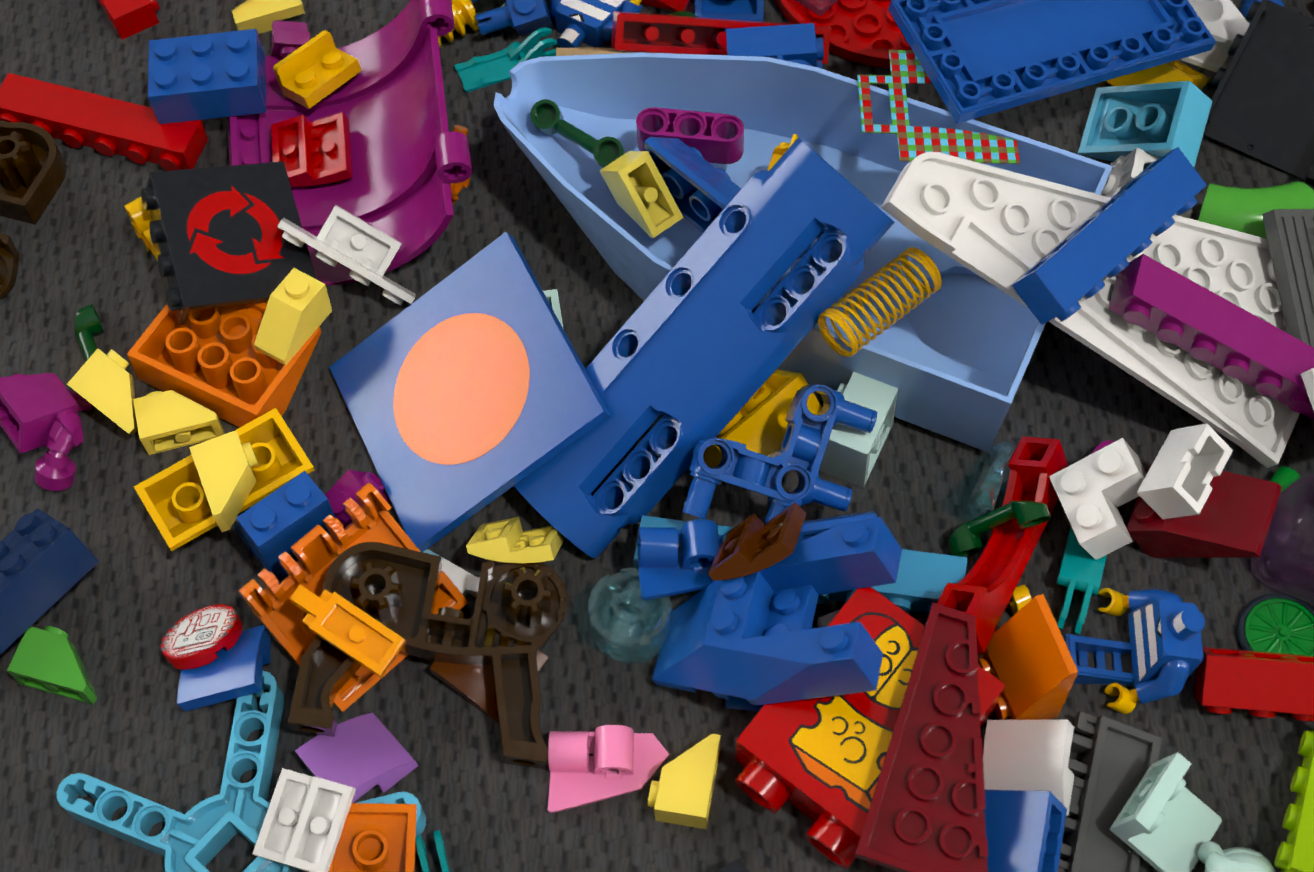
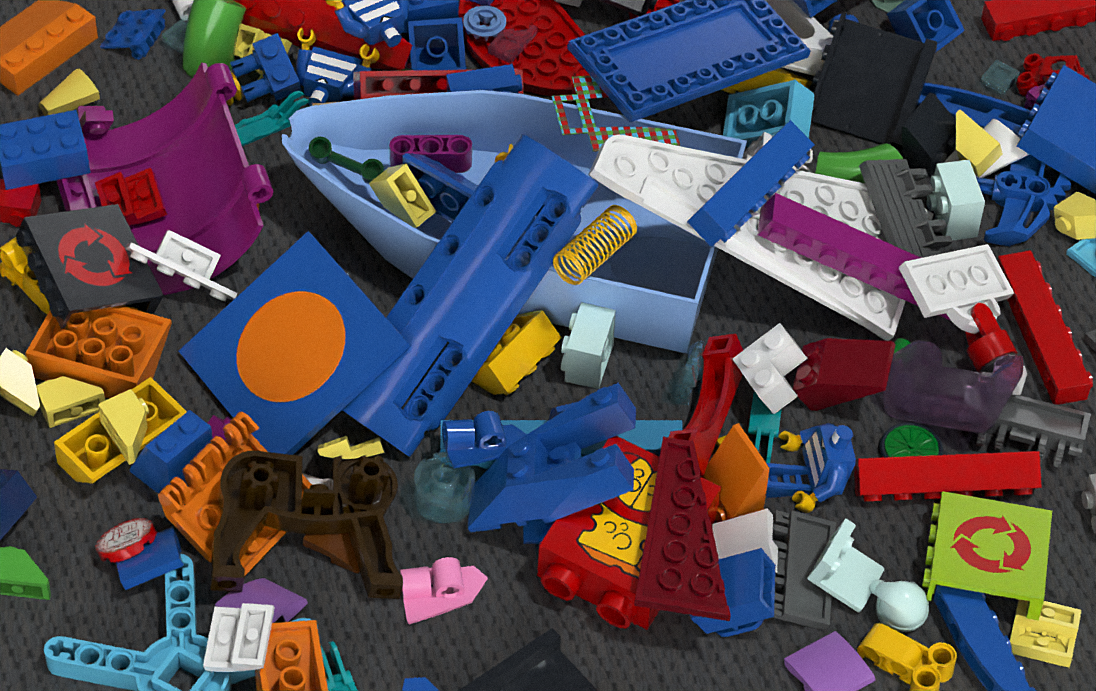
camera: 15 degrees left, 10 degrees down
(292, 316) = (151, 310): light yellow slope -> none
(315, 70) = (122, 139): yellow bracket -> none
(349, 629) = (246, 506): light orange hinge -> none
(687, 785) = (505, 592): light yellow slope -> none
(757, 545) = (529, 422): reddish brown slope -> none
(799, 451) = (526, 375): blue pin -> none
(966, 537) = (720, 382): dark green bar -> none
(1183, 470) = (825, 339): white brick -> none

